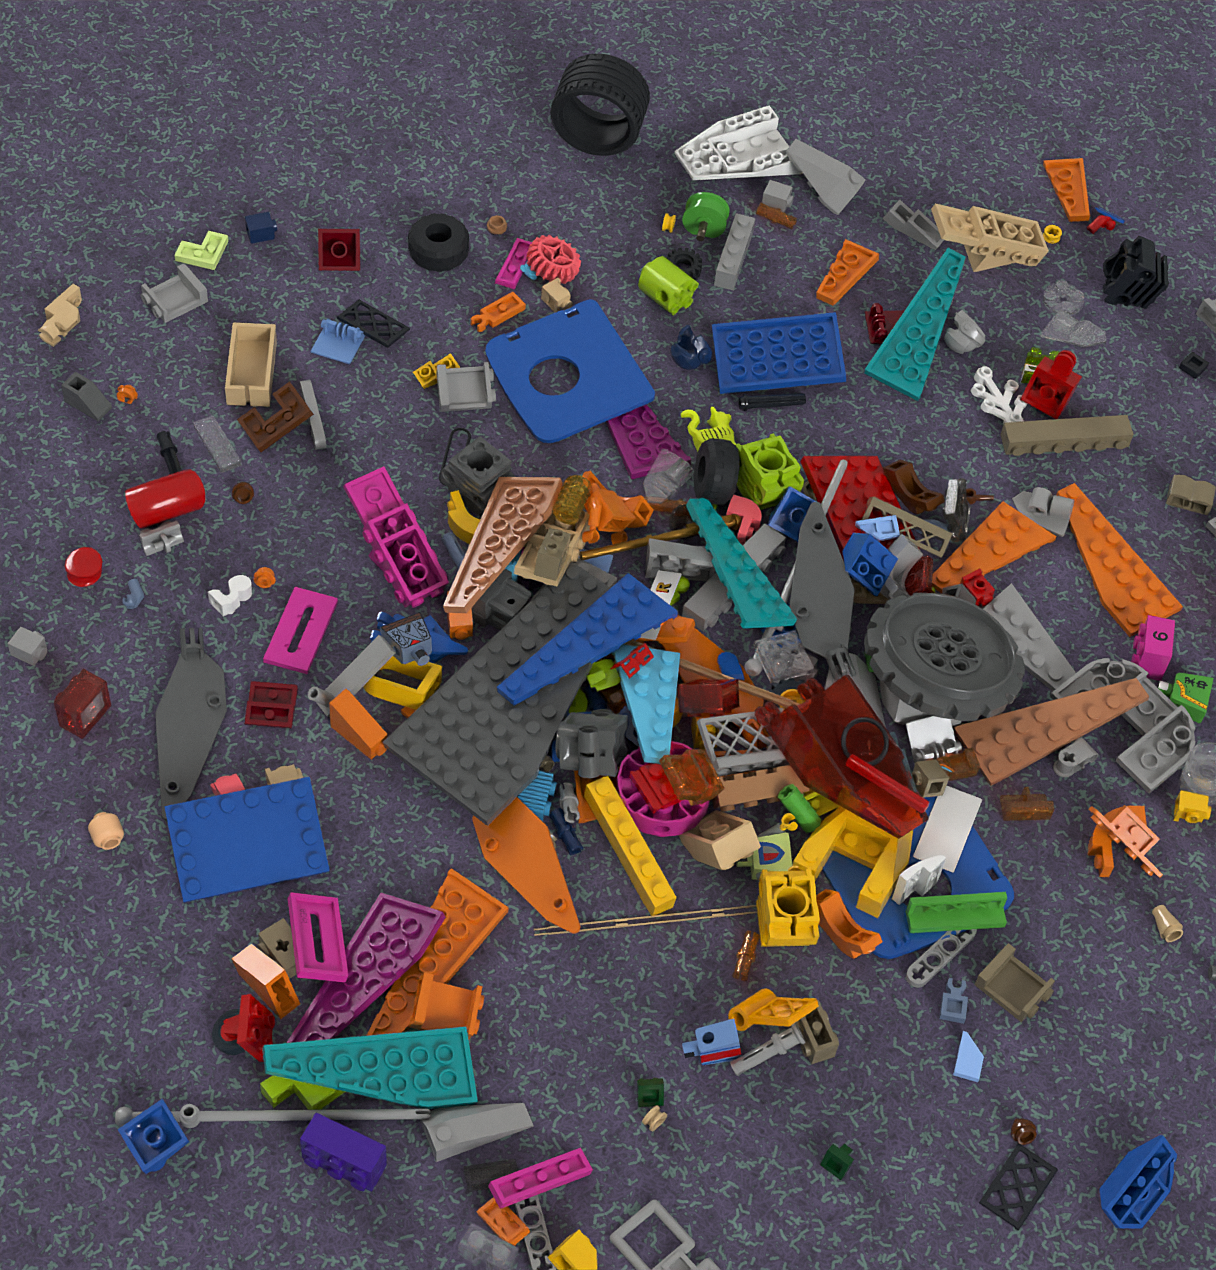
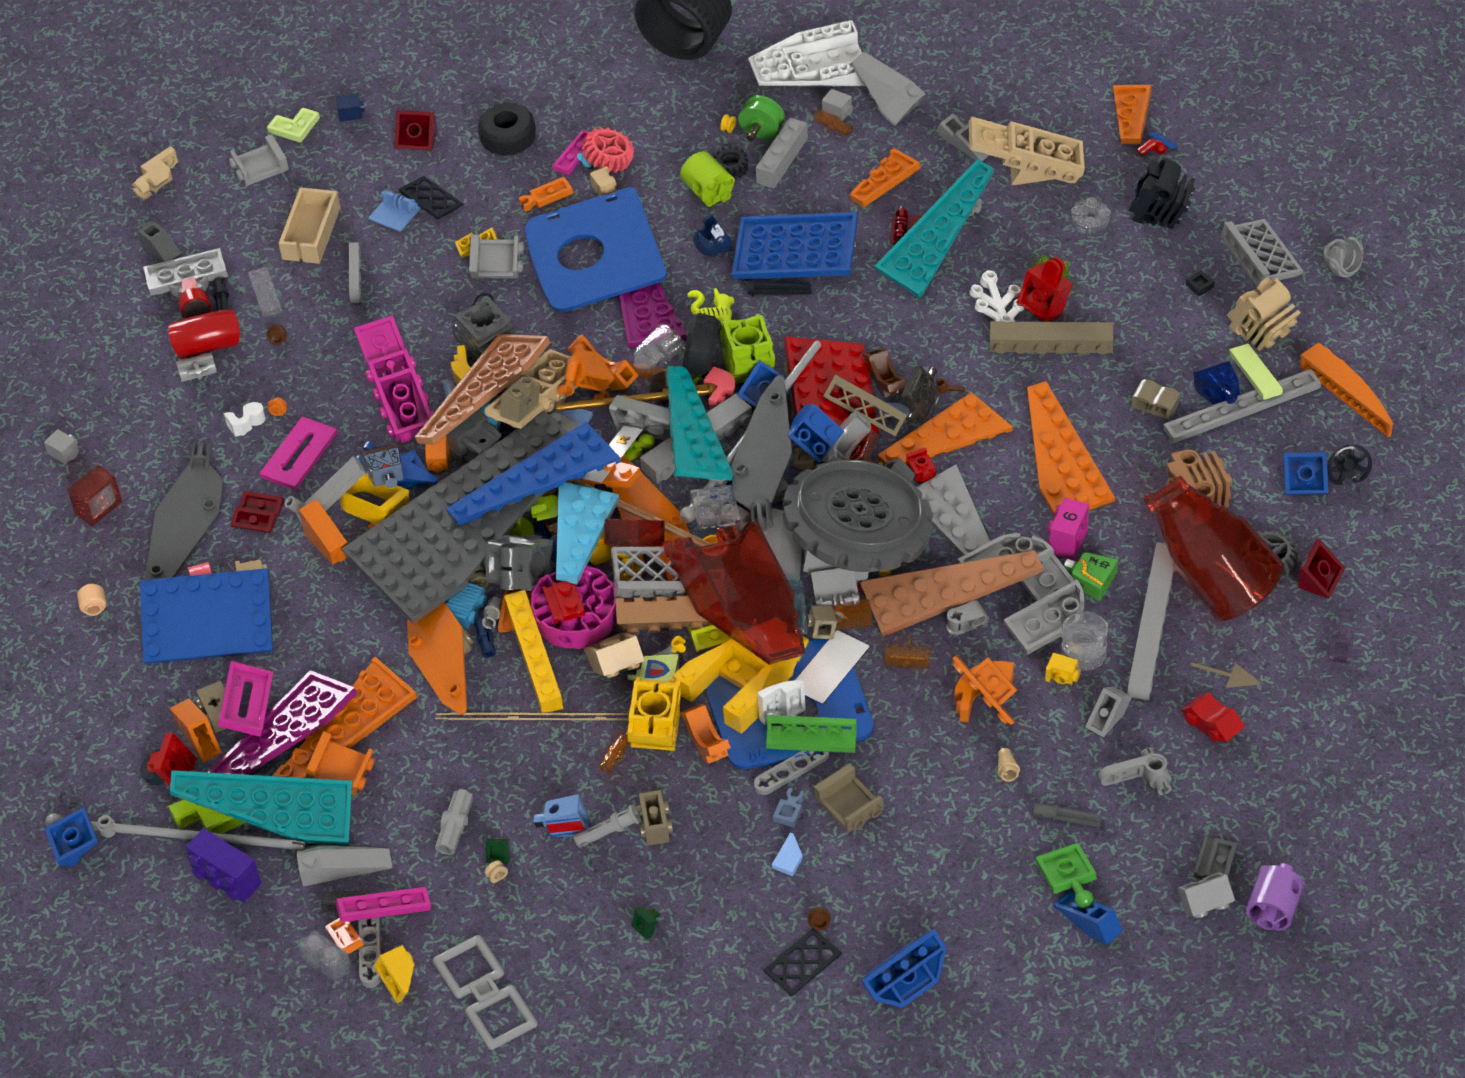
camera: 20 degrees right, 5 degrees down
(83, 566) = (125, 386): red piece -> none
(126, 391) = (196, 242): orange plate -> none
(127, 436) = (187, 279): none -> light grey plate
(136, 595) = (164, 414): sand blue arm -> none
(267, 432) = (309, 284): reddish brown plate -> none
(496, 225) = (567, 117): medium nougat plate -> none
(571, 499) = (554, 356): clear yellow piece -> none
(591, 1062) = (454, 821): none -> light grey piece
(636, 661) = (576, 494): red piece -> none
(692, 776) = (594, 594): clear orange brick -> none
(730, 666) = (669, 512): blue piece -> none
(768, 1009) = (612, 792): light orange piece -> none
(800, 808) = (692, 634): bright green axle -> none
(878, 725) = (746, 582): black tyre -> none
(880, 528) = (837, 403): light blue tile -> none
(887, 783) = (774, 619): red axle -> none
(966, 337) = (979, 240): light grey helmet -> none
(1045, 509) = (1009, 402): light grey panel -> none
(1050, 238) = (1095, 156): yellow bush -> none
(1072, 331) = (1087, 244): clear panel -> none

